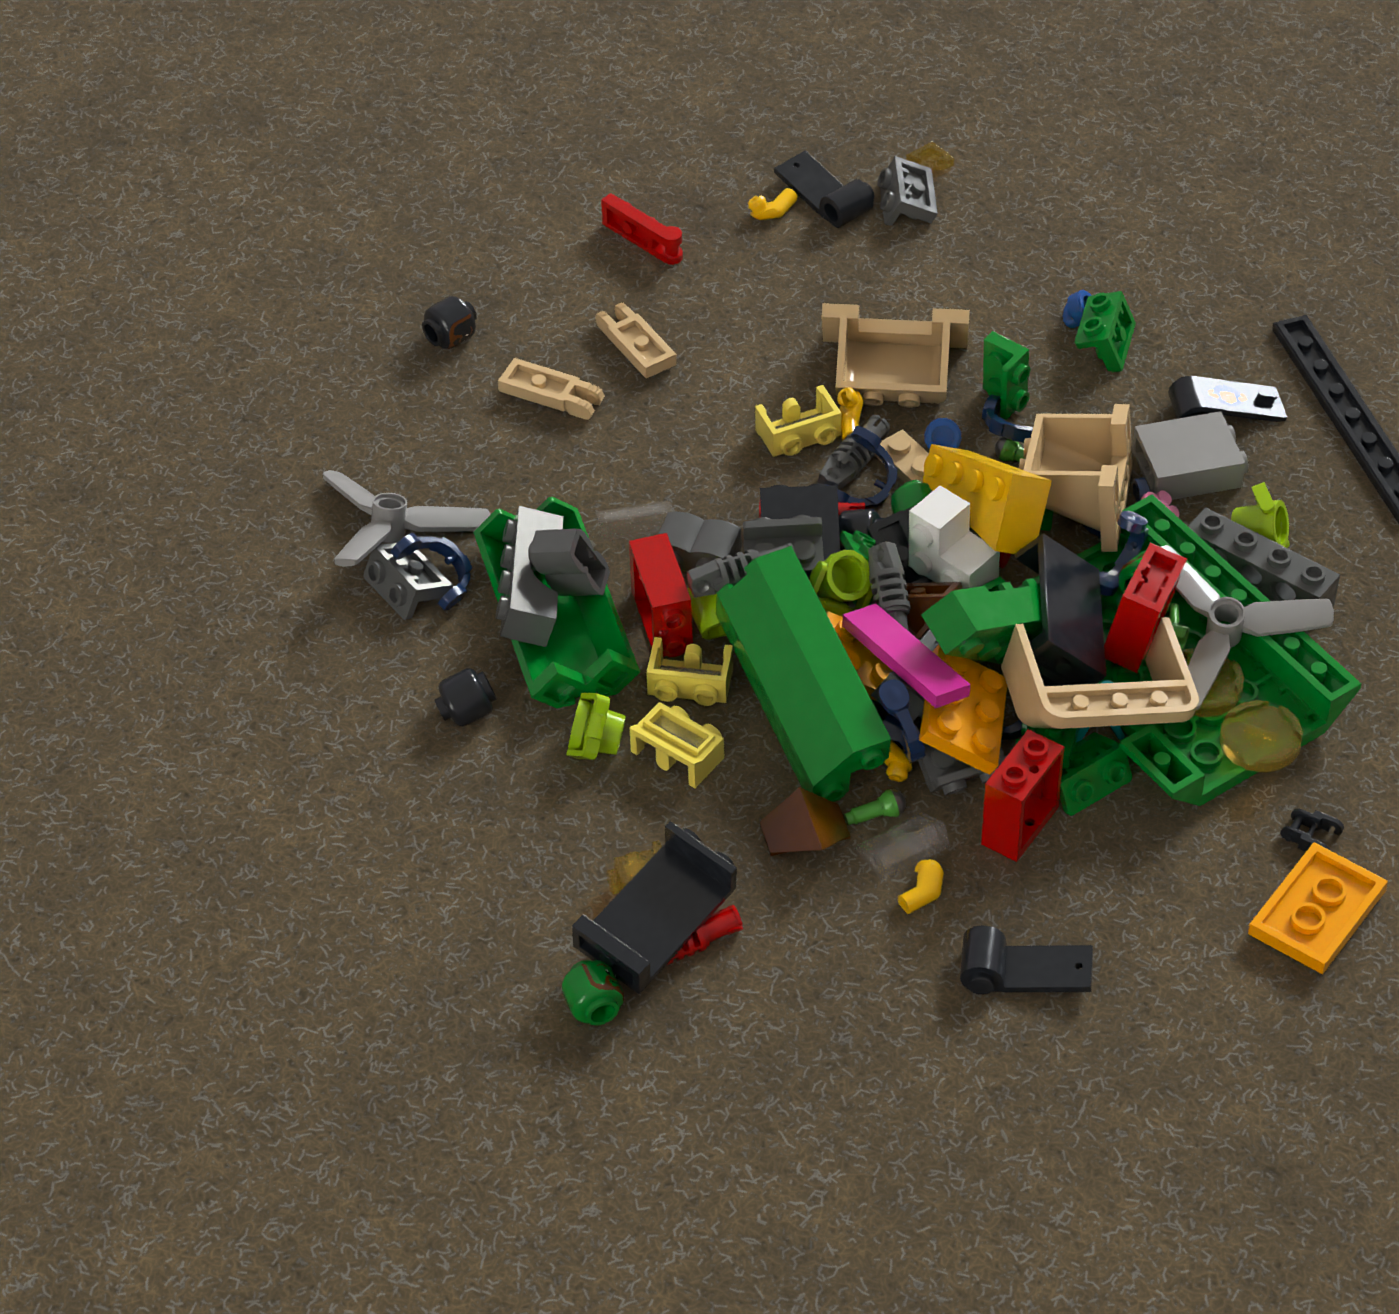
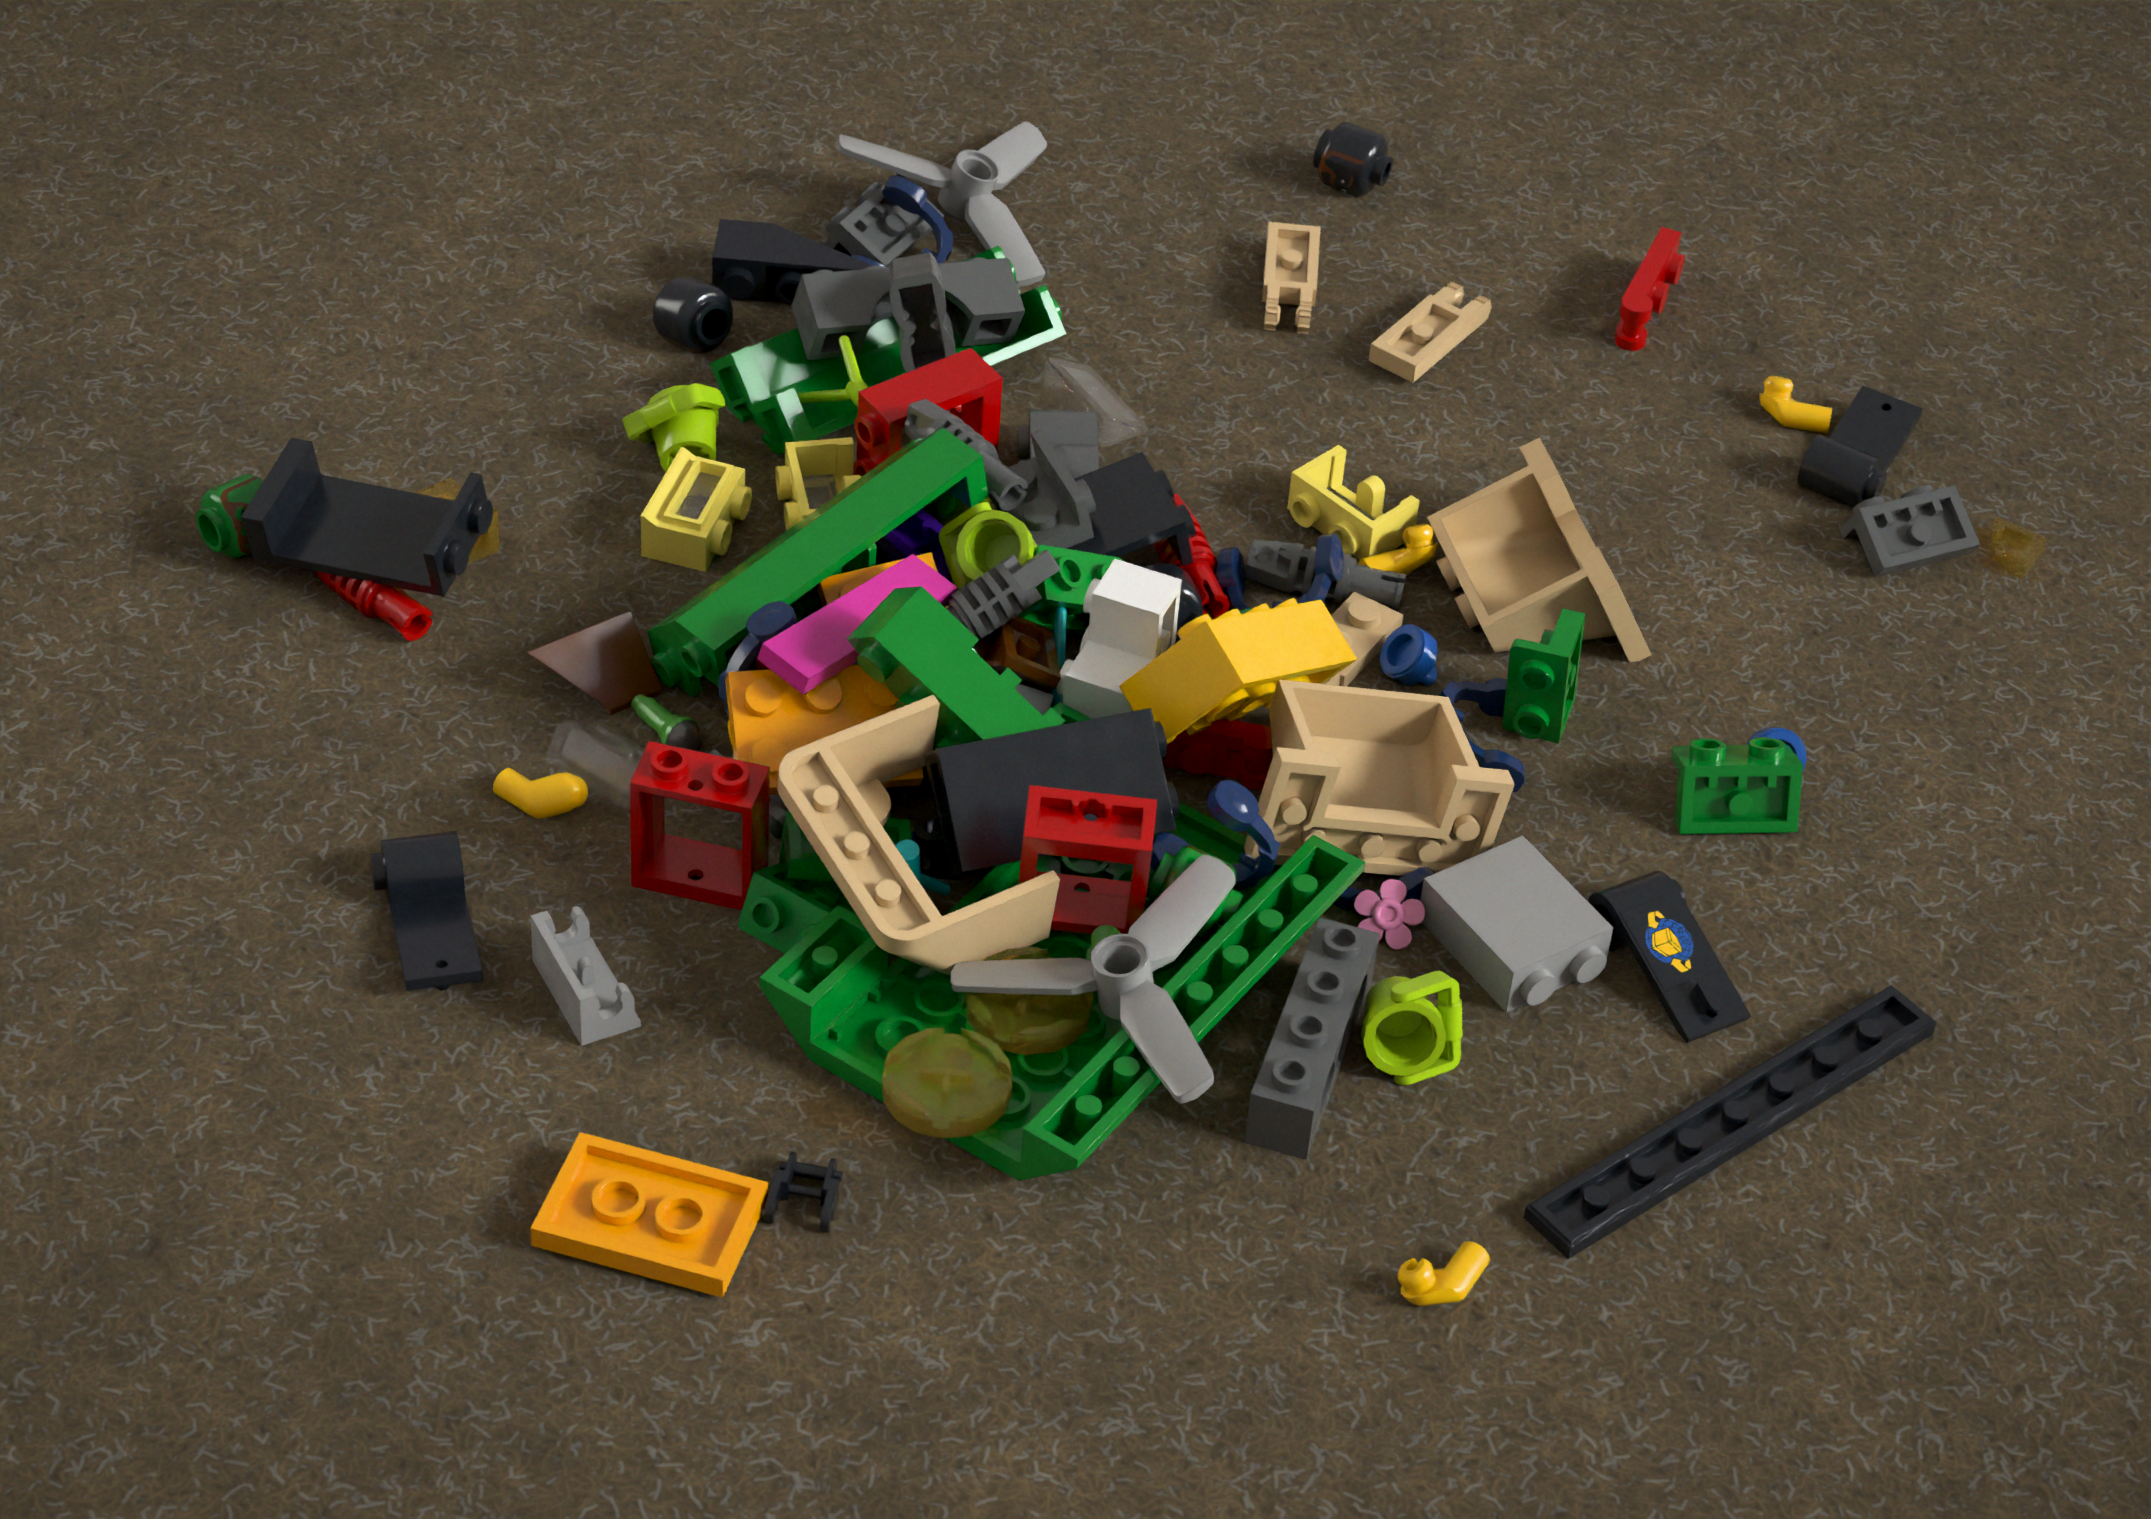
camera: 65 degrees right, 5 degrees down
(427, 642) = (767, 261): none -> black slope
(609, 622) = (853, 386): none -> lime plant
(1109, 901) = (581, 979): none -> light grey hinge

